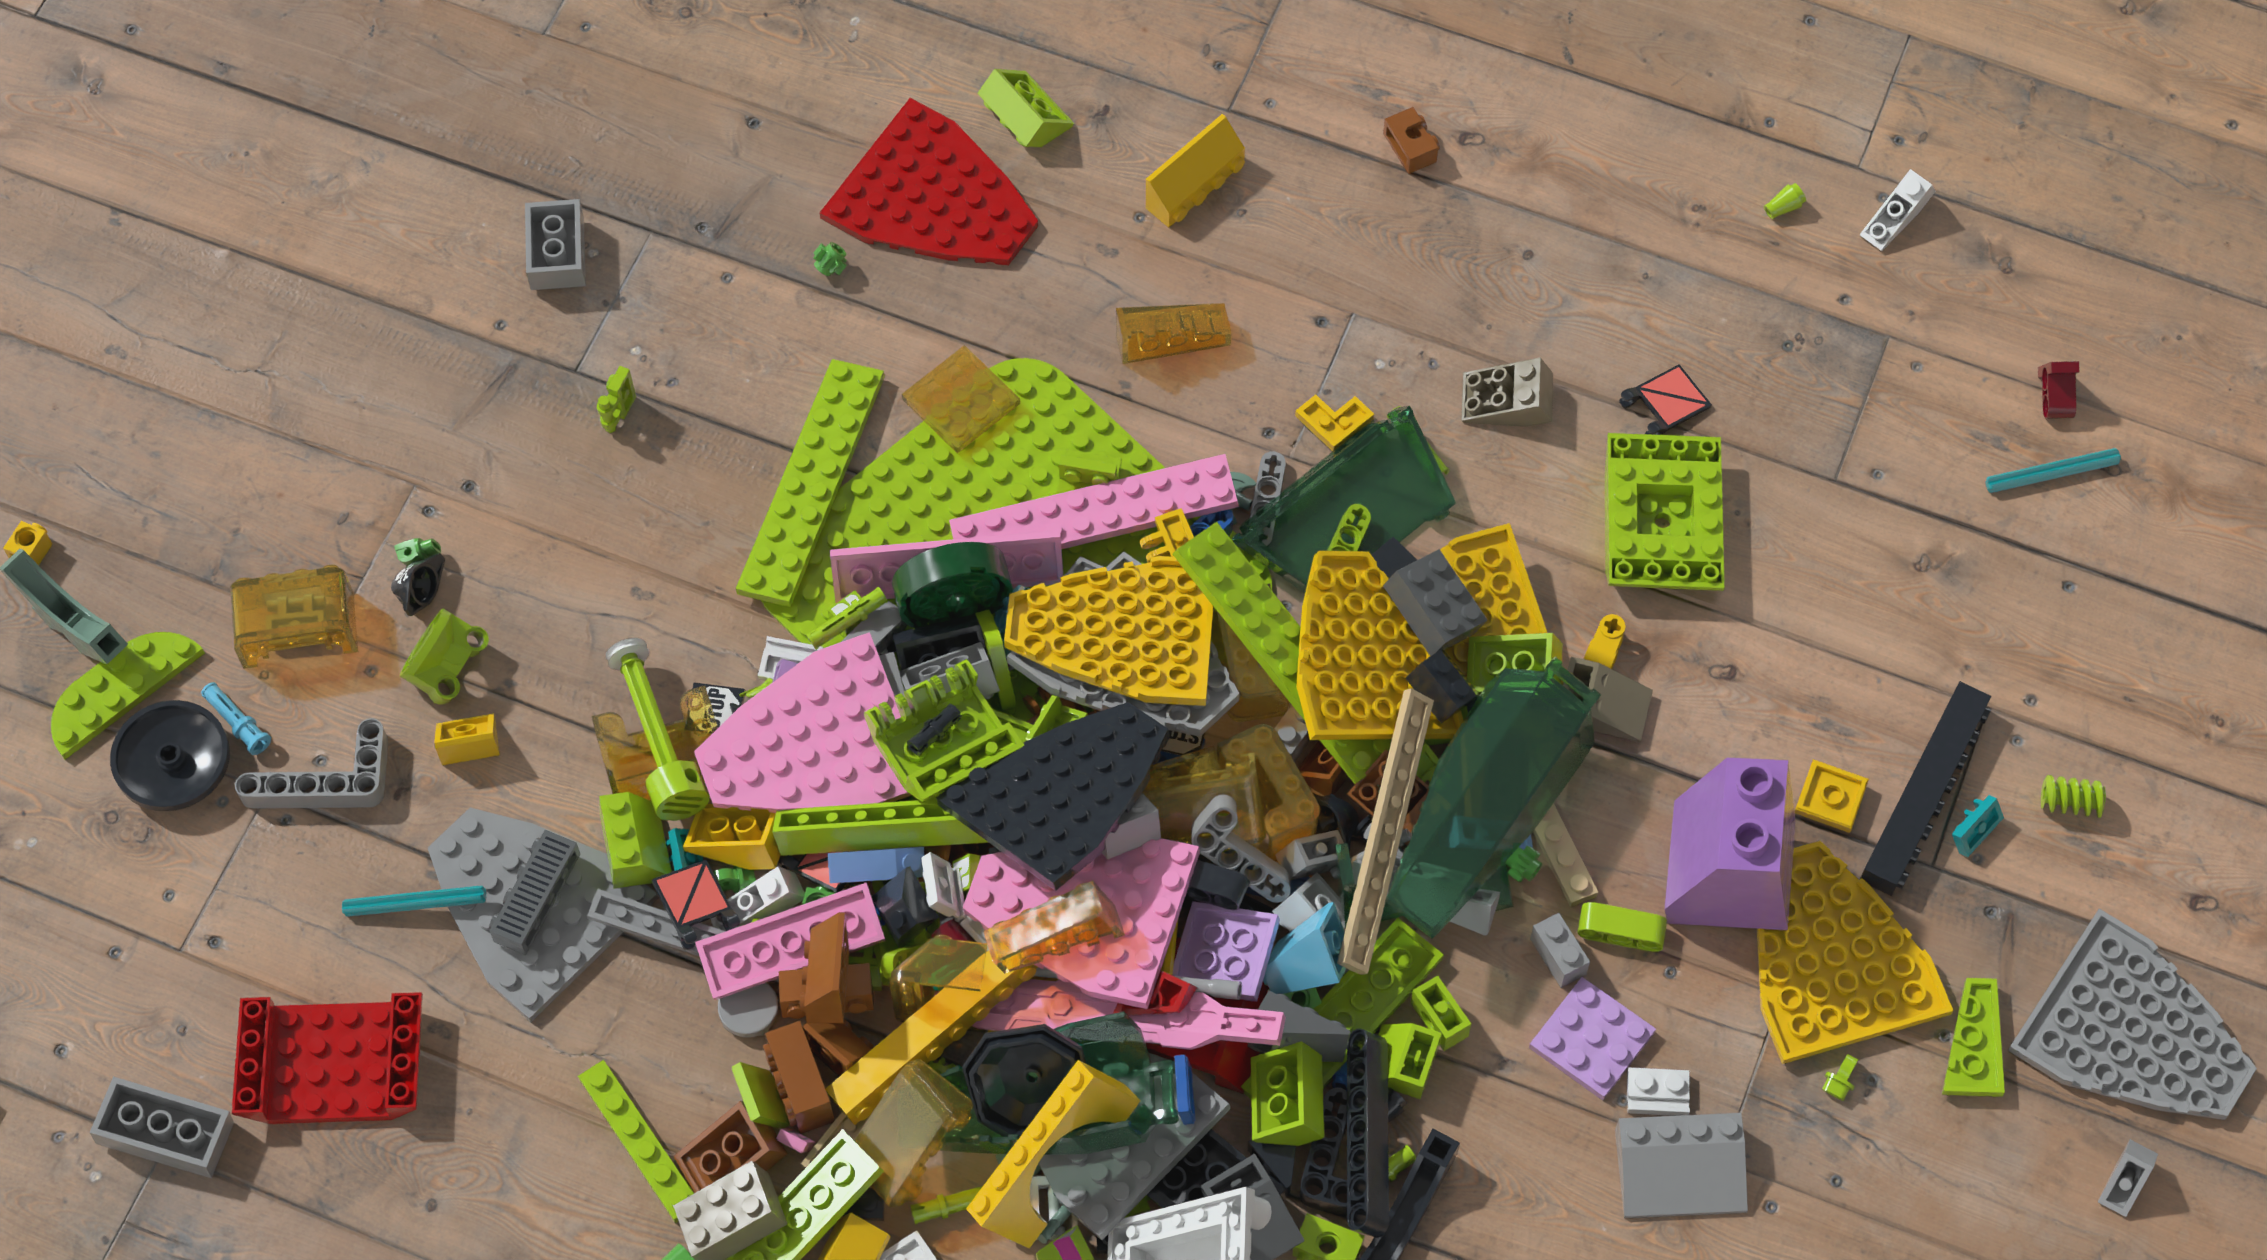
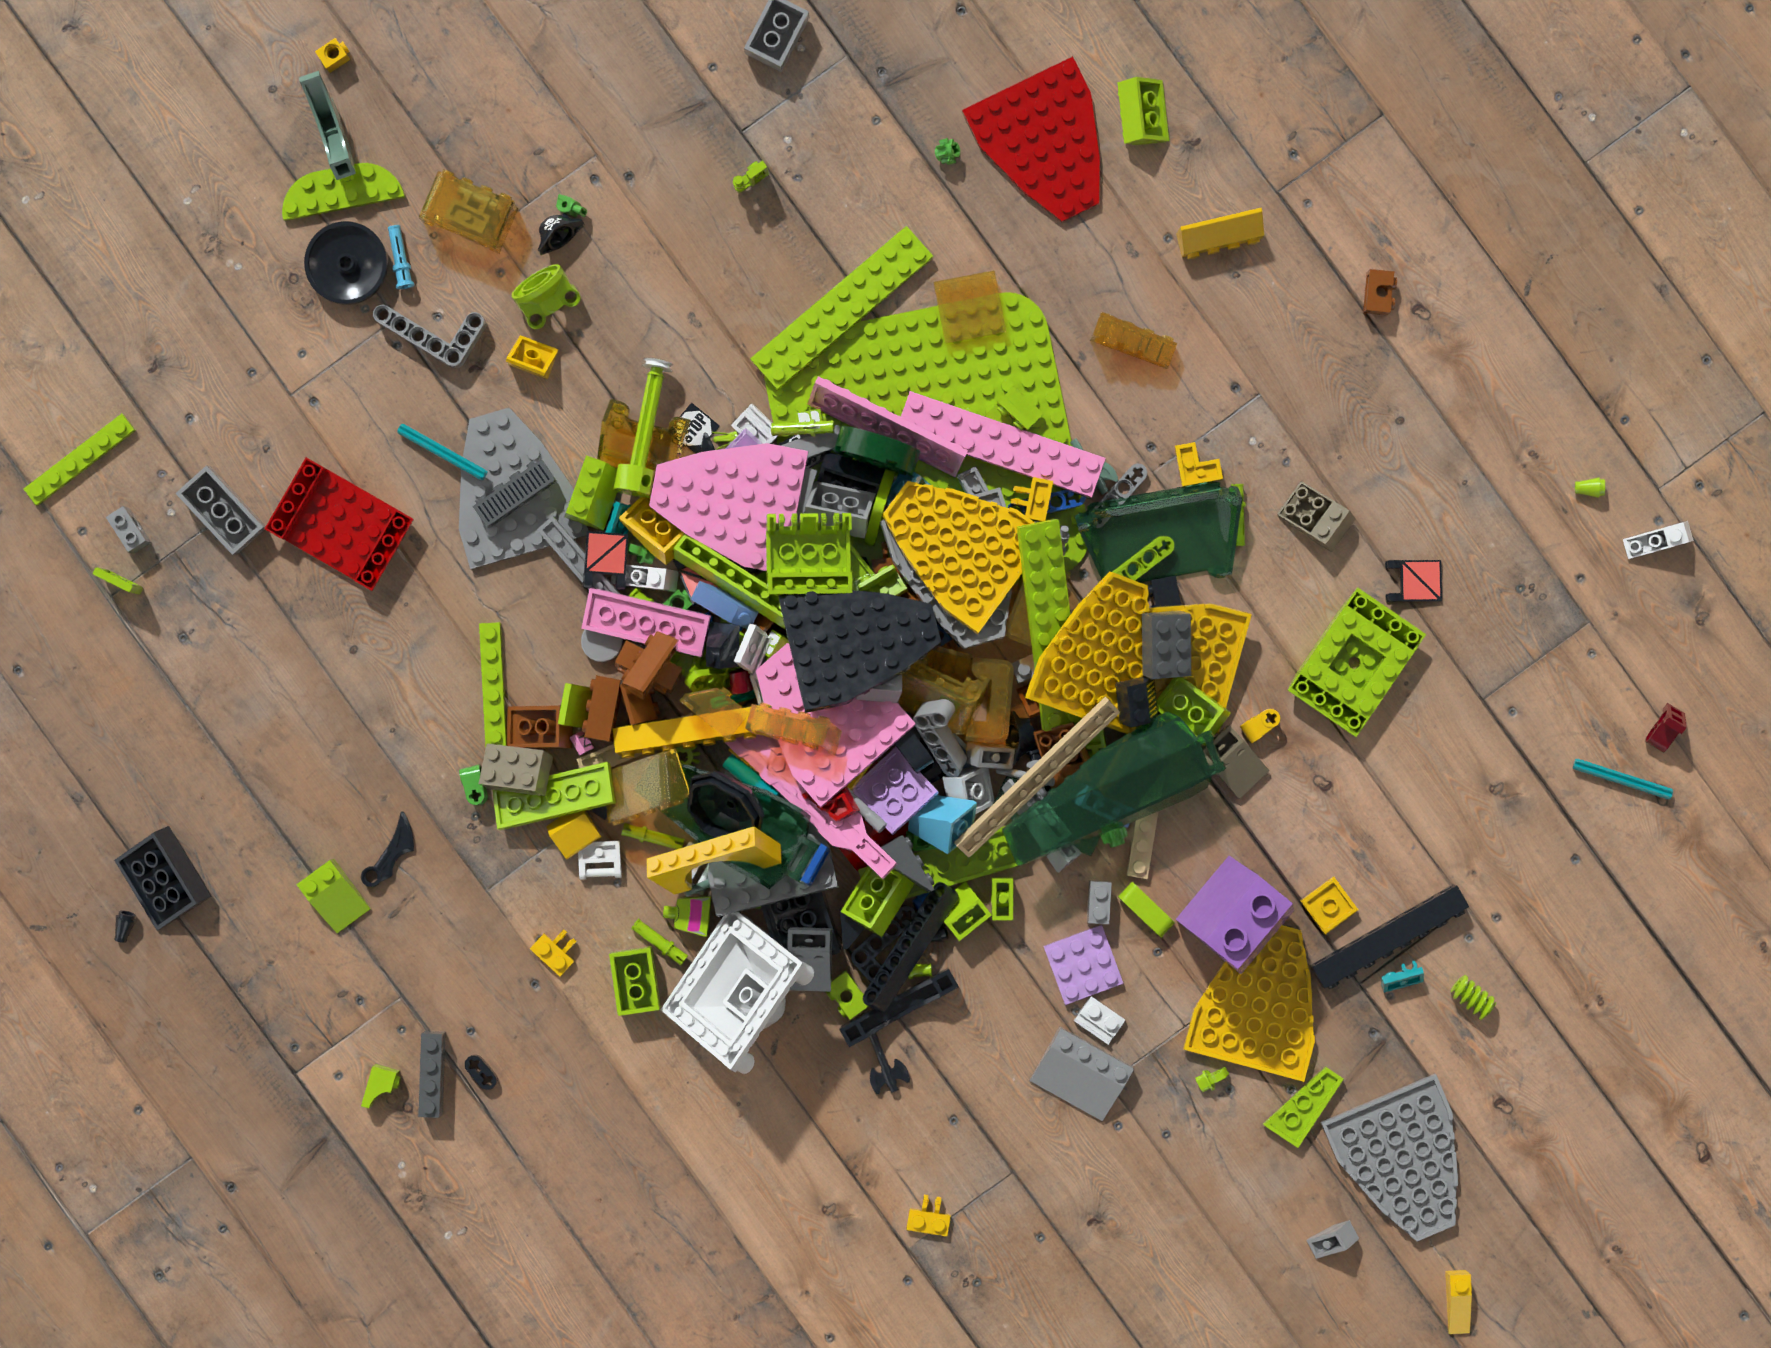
camera: 30 degrees right, 25 degrees up
(48, 1222) = (128, 529): none -> light grey brick
(934, 729) = (804, 548): black pin -> none
(1345, 879) = (996, 788): clear green tile -> none

